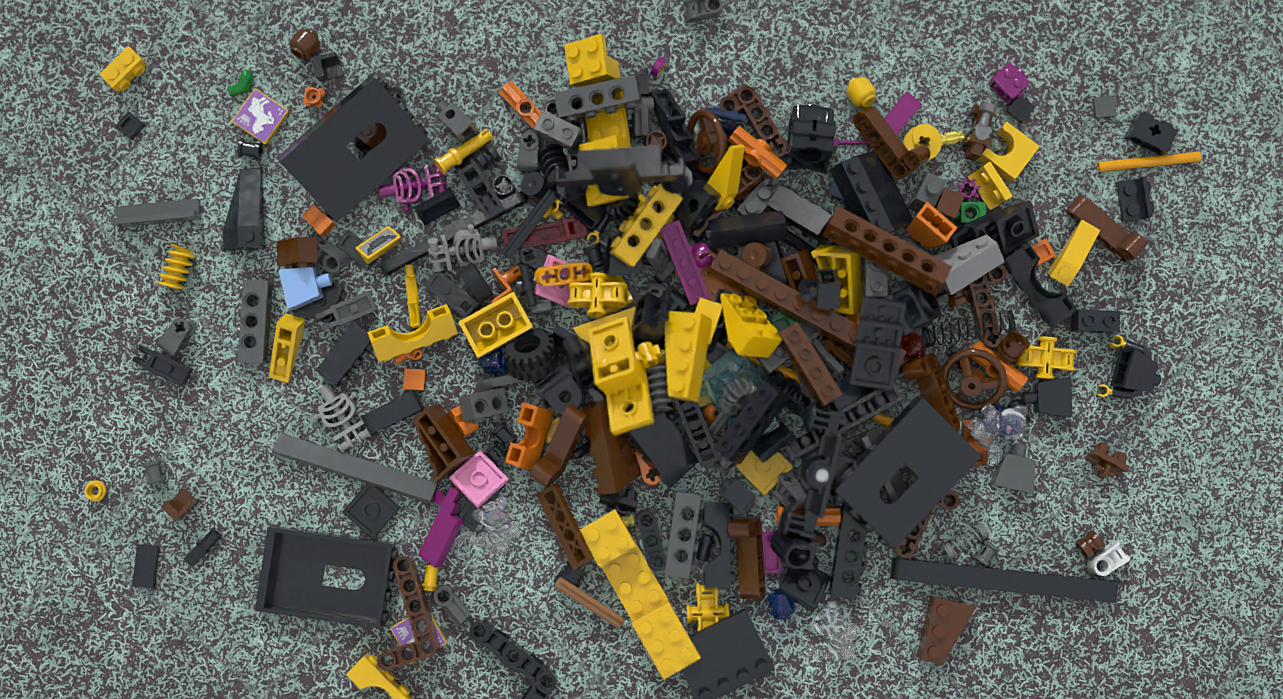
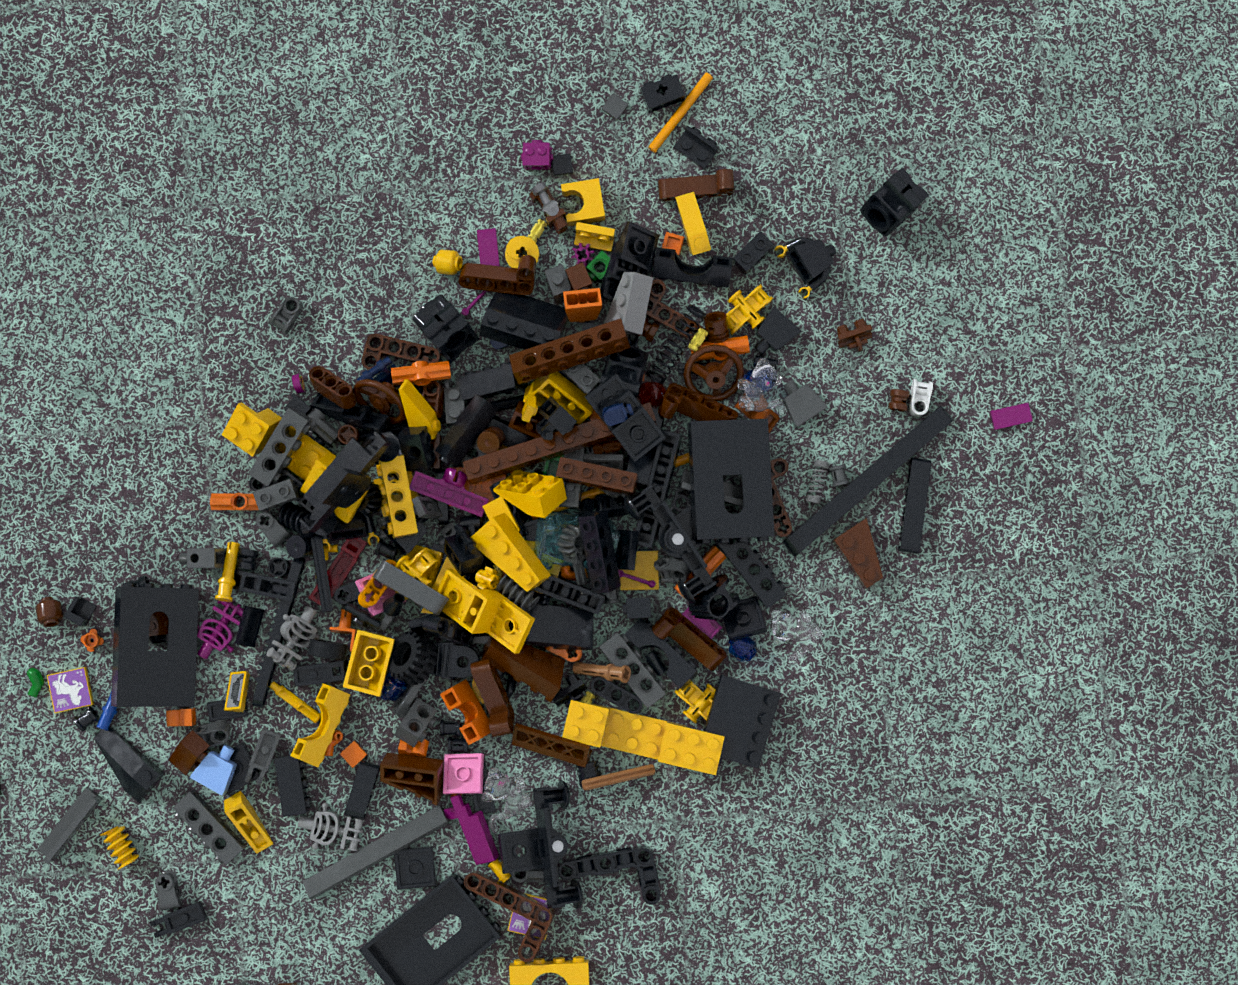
camera: 40 degrees left, 0 degrees up
(266, 163) = (107, 715): none -> blue pin
(479, 596) = (543, 848): none -> black piece
(558, 301) = (393, 605): none -> black cone
(585, 301) = (410, 588): none -> dark grey beam
(664, 518) = (609, 672): none -> medium nougat pin
(681, 95) = (332, 387): none -> reddish brown beam
(763, 486) = (651, 583): none -> magenta hinge
(811, 262) = (529, 409): none -> yellow plate
(875, 334) = (616, 413): none -> dark blue arm
(988, 342) = (698, 339): none -> light yellow piece
(1020, 636) = (915, 505): none -> black beam
(1162, 645) = (1011, 416): none -> magenta tile
(1243, 394) = (893, 203): none -> black piece

